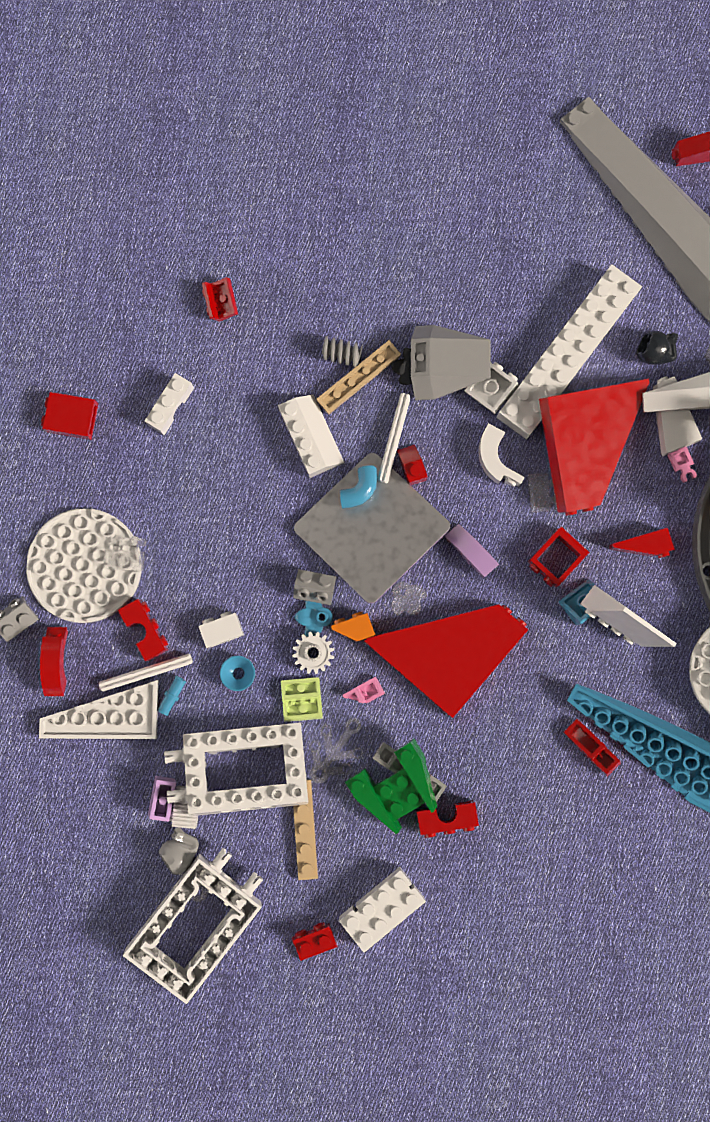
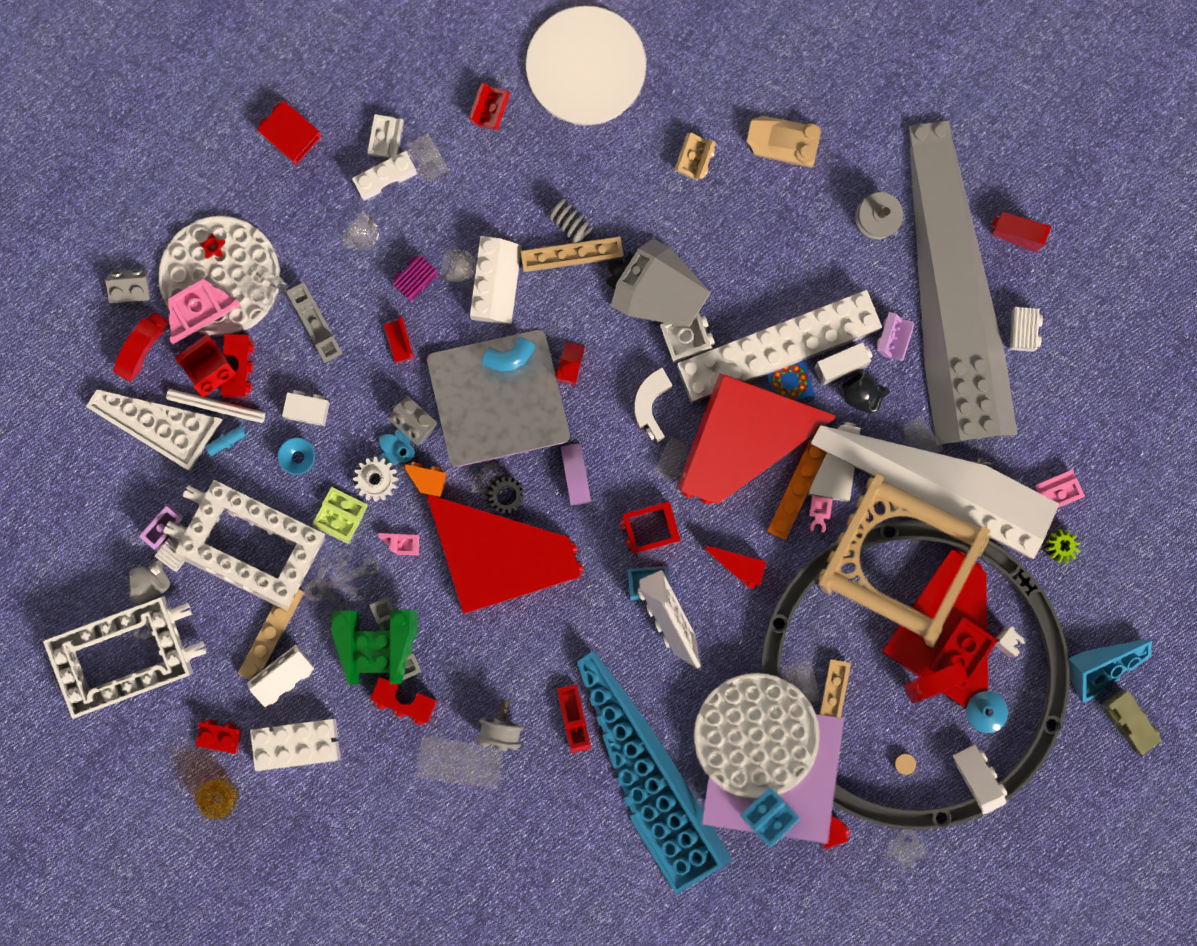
camera: 35 degrees right, 0 degrees up
(60, 540) = (209, 252): none -> red plate
(82, 602) = (197, 308): none -> bright pink wing
(118, 645) = (205, 365): none -> red panel
(150, 373) = (385, 136): none -> white plate
(179, 461) = (361, 233): none -> clear piece
(185, 556) = (314, 322): none -> light grey slope
(195, 369) = (427, 158): none -> clear brick
(244, 471) = (414, 277): none -> magenta brick
(262, 529) = (399, 340): none -> red panel
(272, 441) = (457, 265): none -> clear piece
(276, 221) = (586, 65): none -> white tile
(335, 860) = (280, 676): none -> white brick
(345, 982) = (205, 801): none -> clear yellow brick
(394, 437) = (569, 329): white axle -> none
(409, 241) = (695, 156): none -> tan bracket
(414, 603) = (493, 488): none -> black tyre
(471, 187) = (784, 140): none -> tan slope
(523, 839) = (459, 762): none -> clear plate
(541, 795) = (500, 731): none -> light grey wheel
(582, 201) = (879, 215): none -> light grey wheel
(594, 373) = (792, 381): none -> tile
(629, 334) = (843, 363): none -> white brick
(653, 457) = (796, 491): none -> orange plate
(656, 289) = (895, 337): none -> lavender bracket

